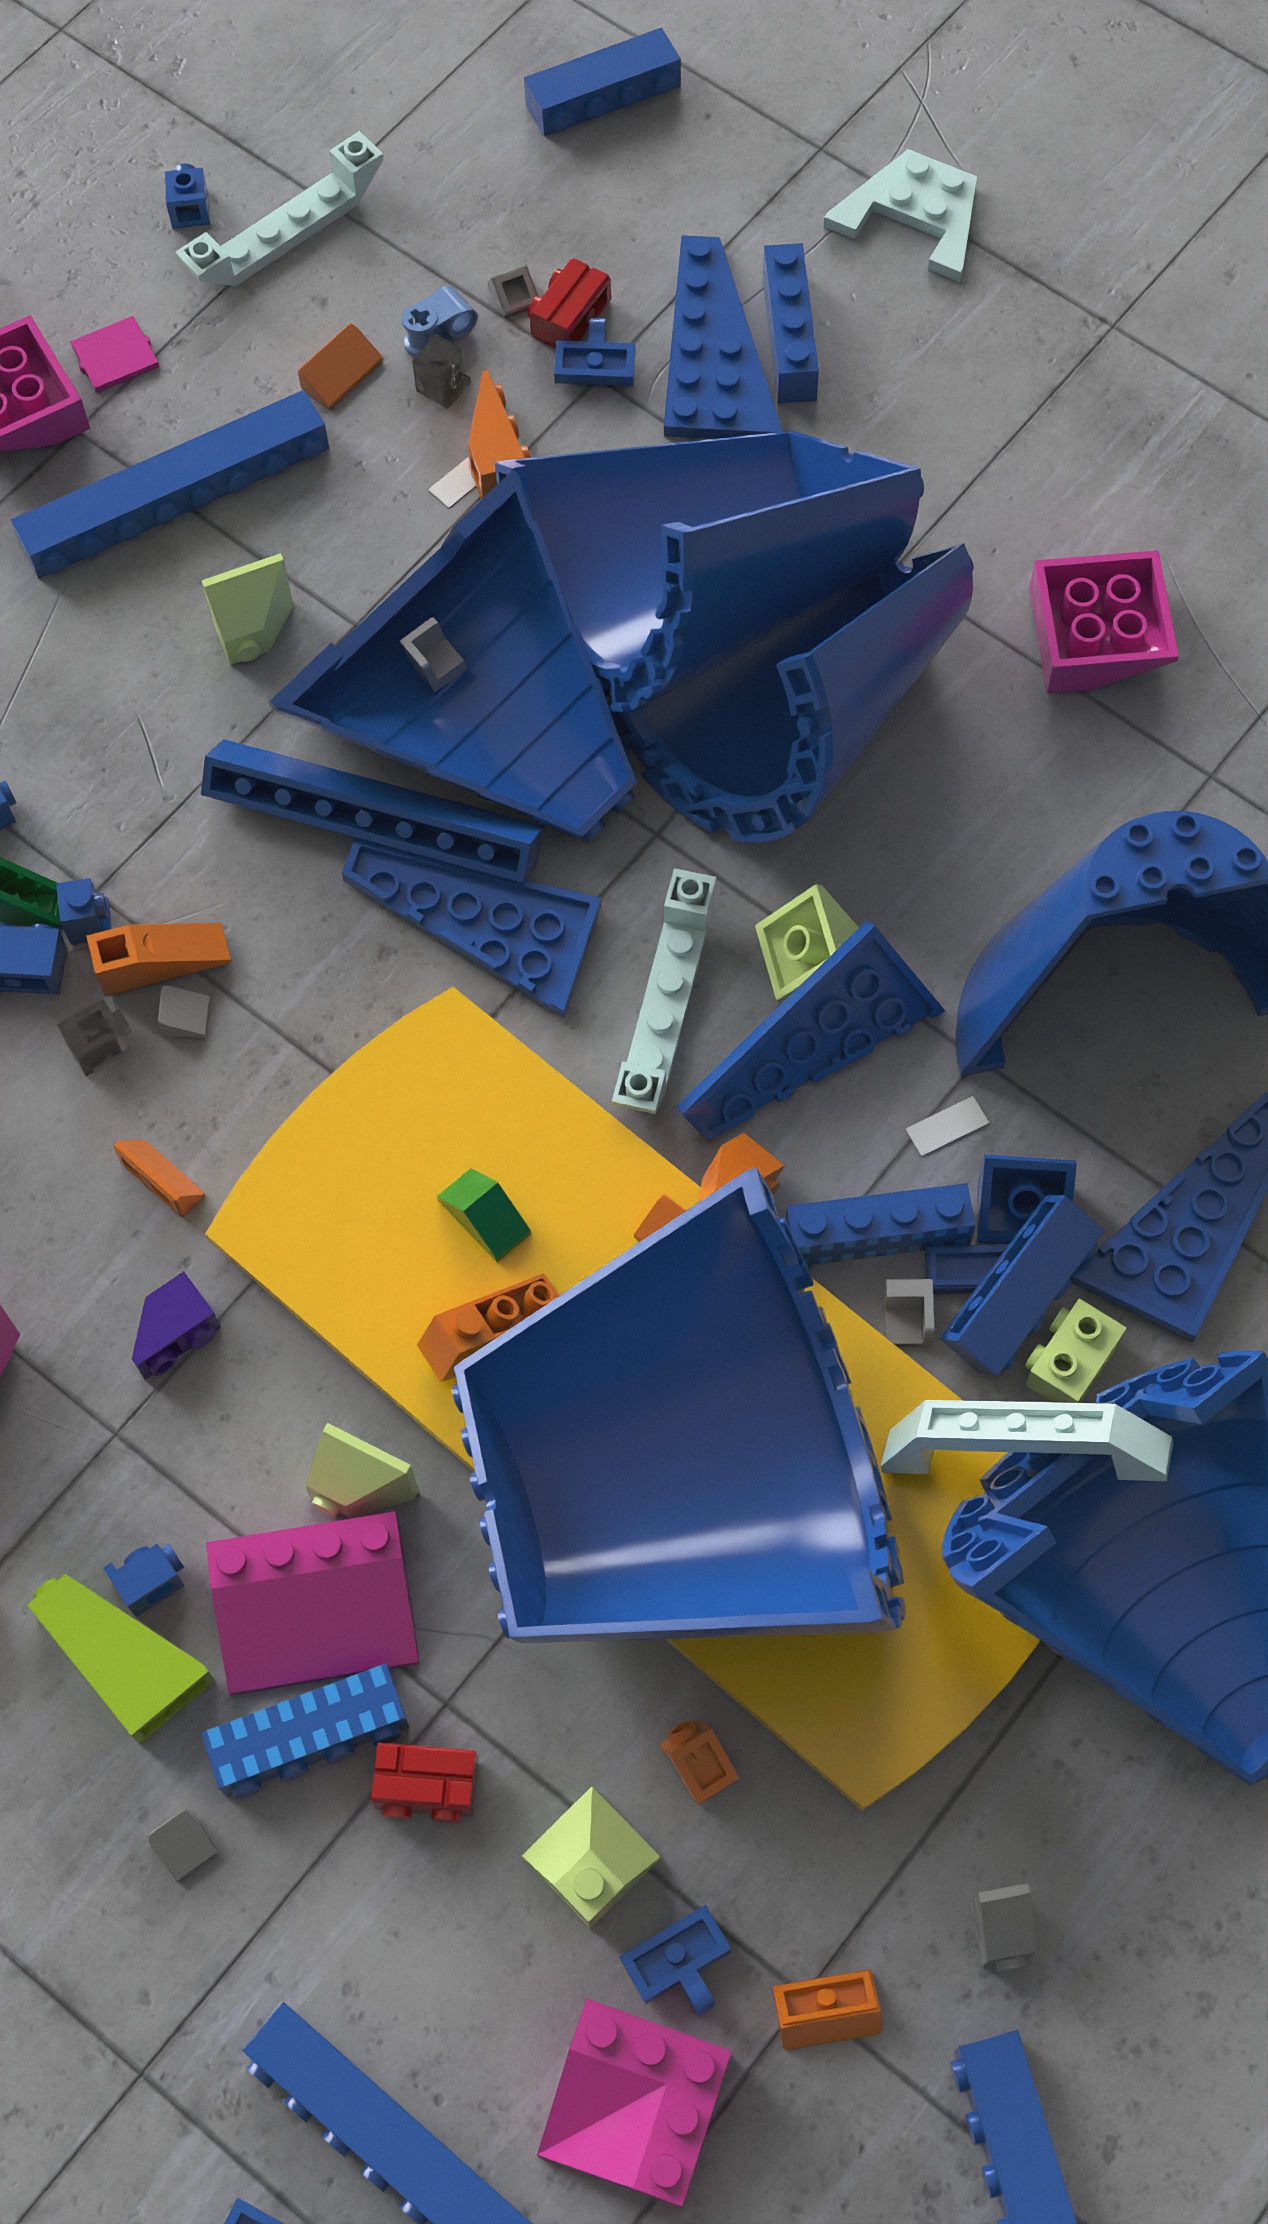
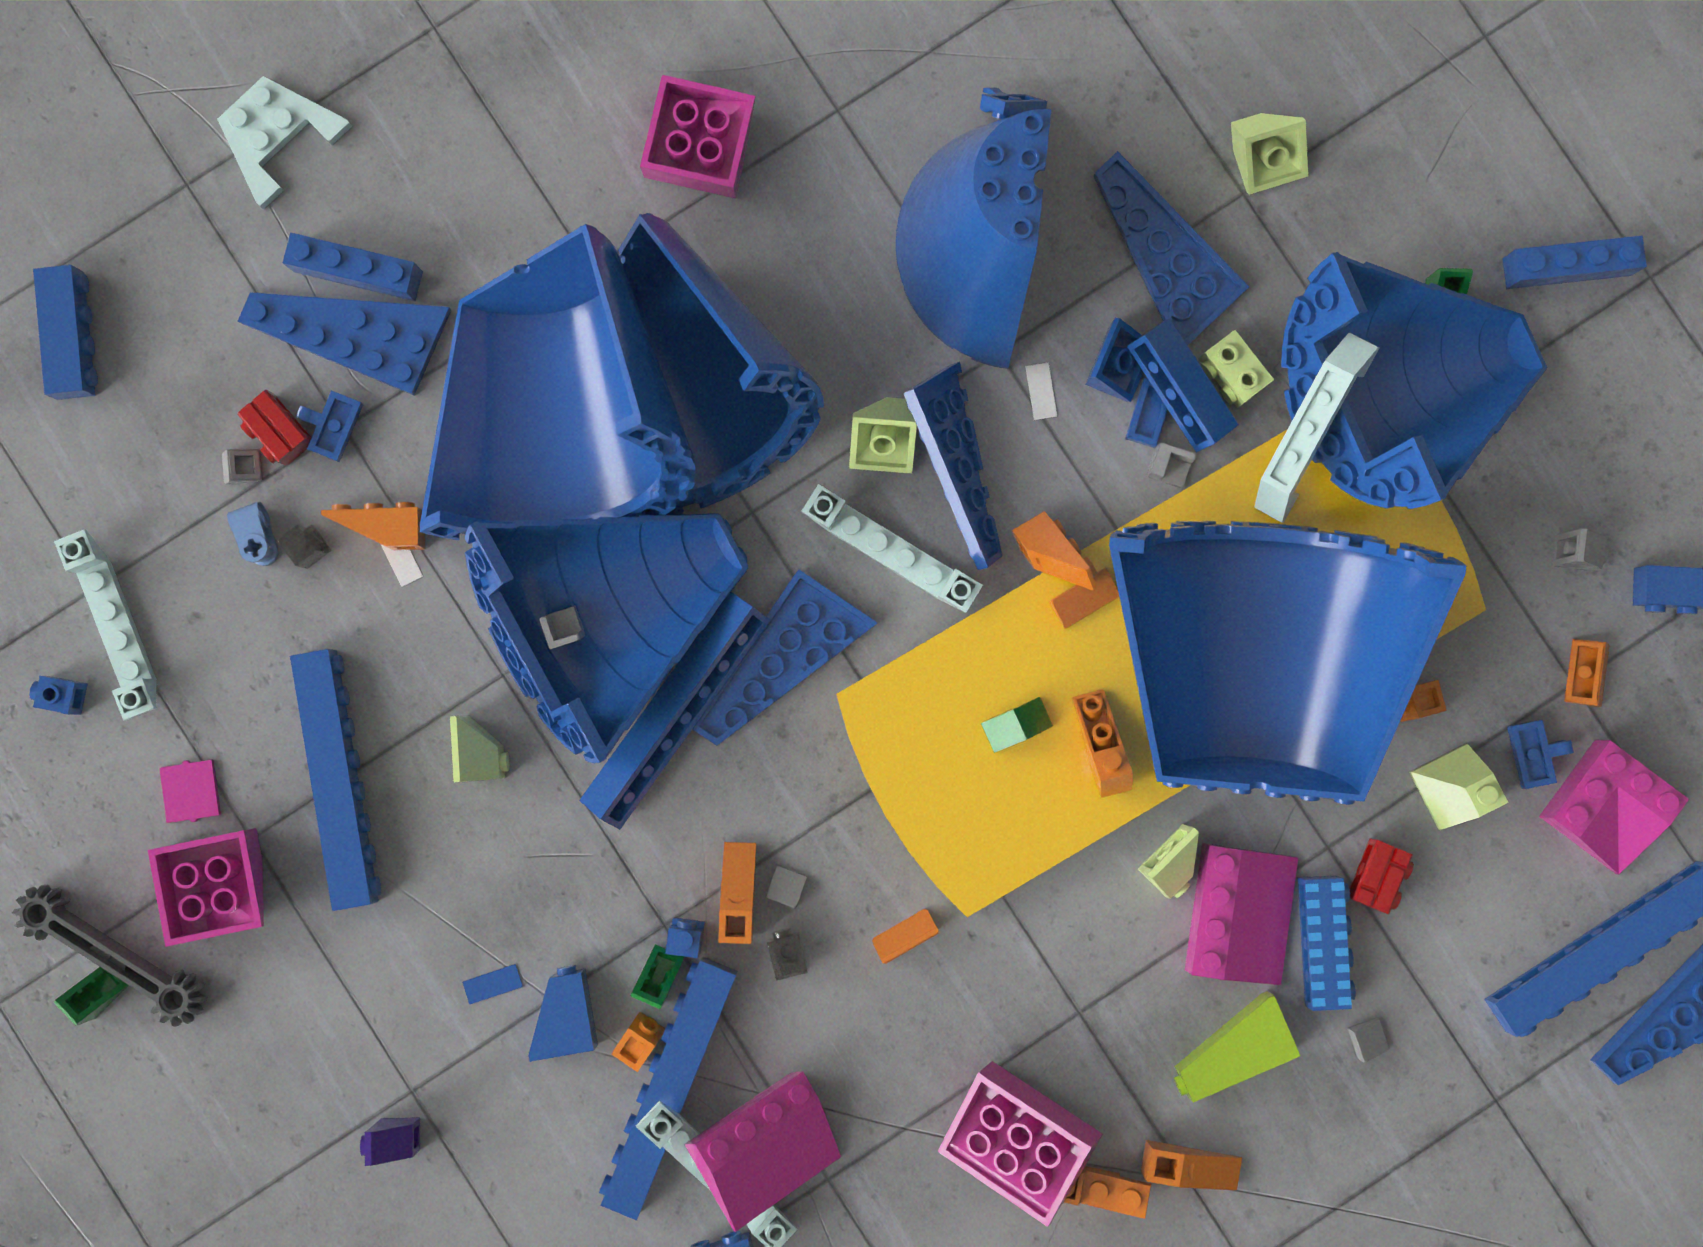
camera: 75 degrees left, 20 degrees up
(146, 1577) = (1192, 1019): blue brick -> none
(171, 1324) = (1020, 957): dark purple slope -> none
(339, 366) = (268, 621): orange slope -> none
(882, 1224) = (1106, 462): blue brick -> none

